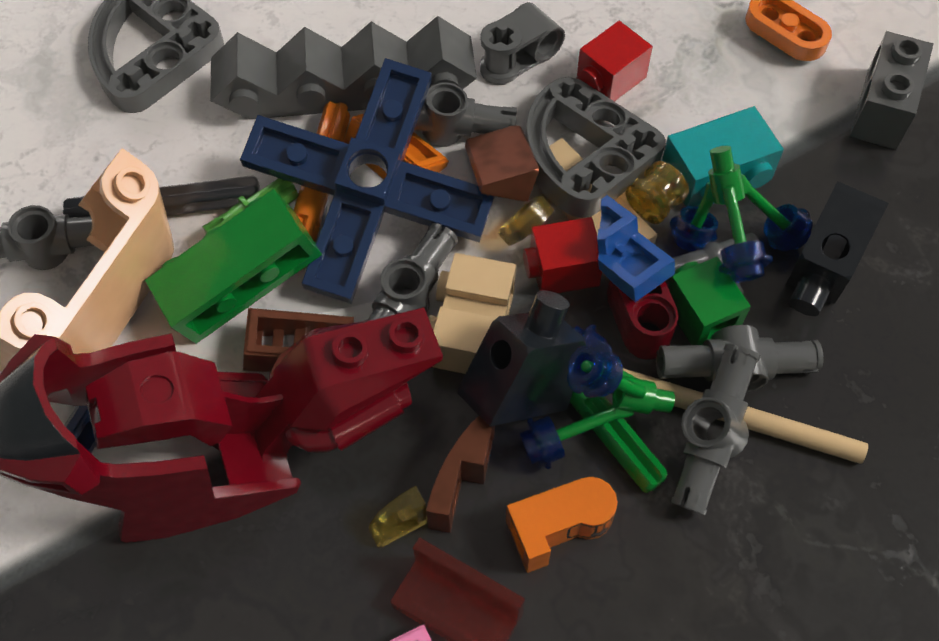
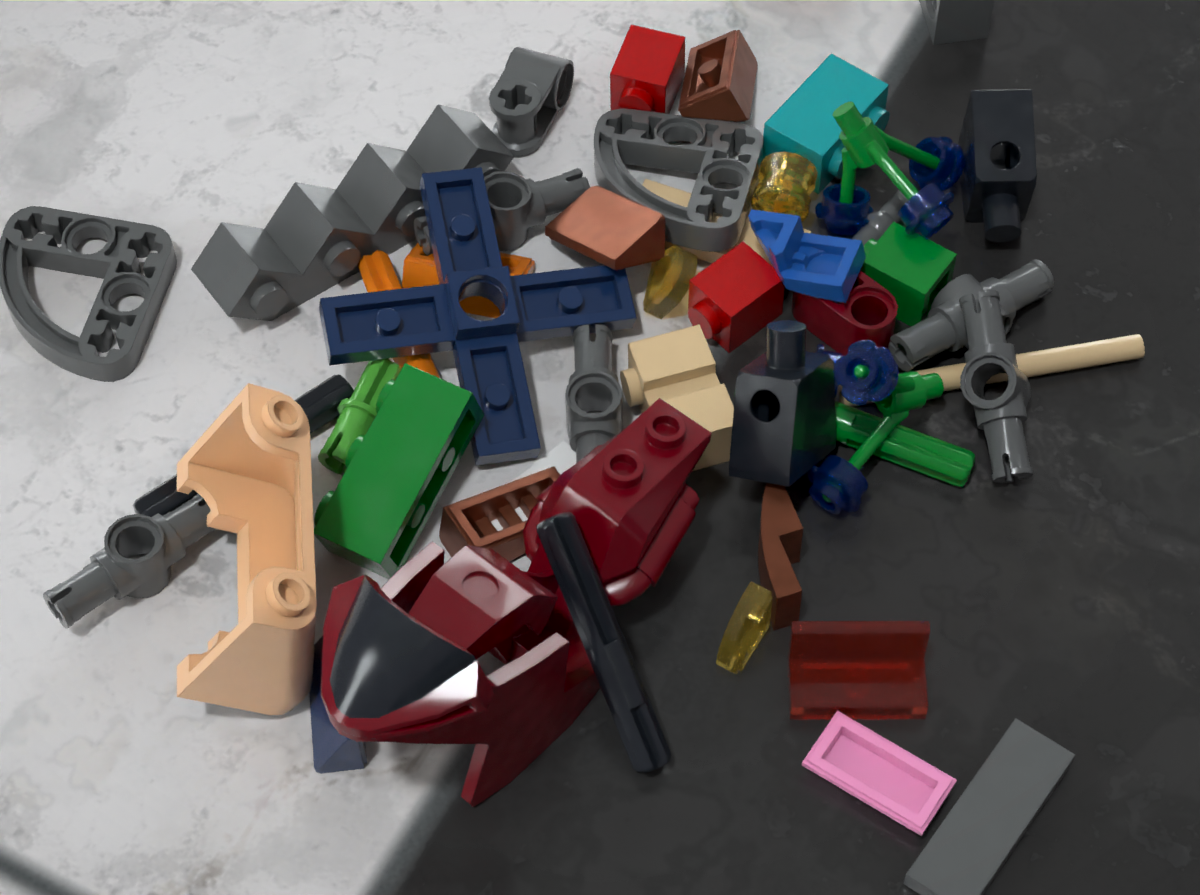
camera: 30 degrees left, 5 degrees down
(269, 475) = (604, 642): none -> black axle
(559, 515) = (890, 554): orange leg -> none
(664, 91) = (719, 79): none -> copper slope

